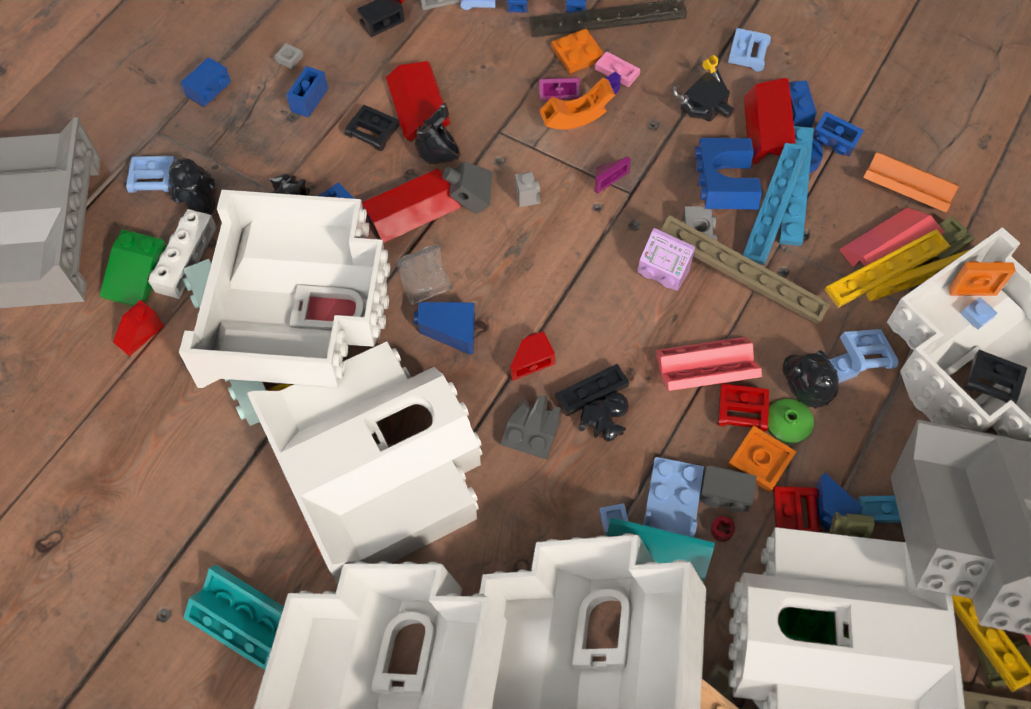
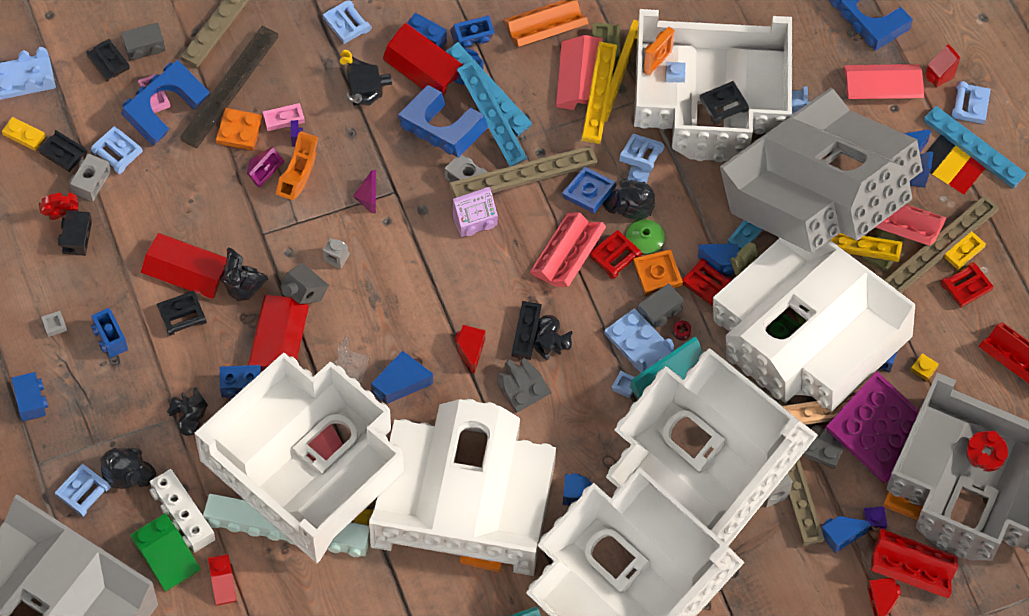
camera: 55 degrees left, 0 degrees up
(461, 562) = (574, 487): none -> blue slope
(785, 335) = (589, 189): none -> blue plate

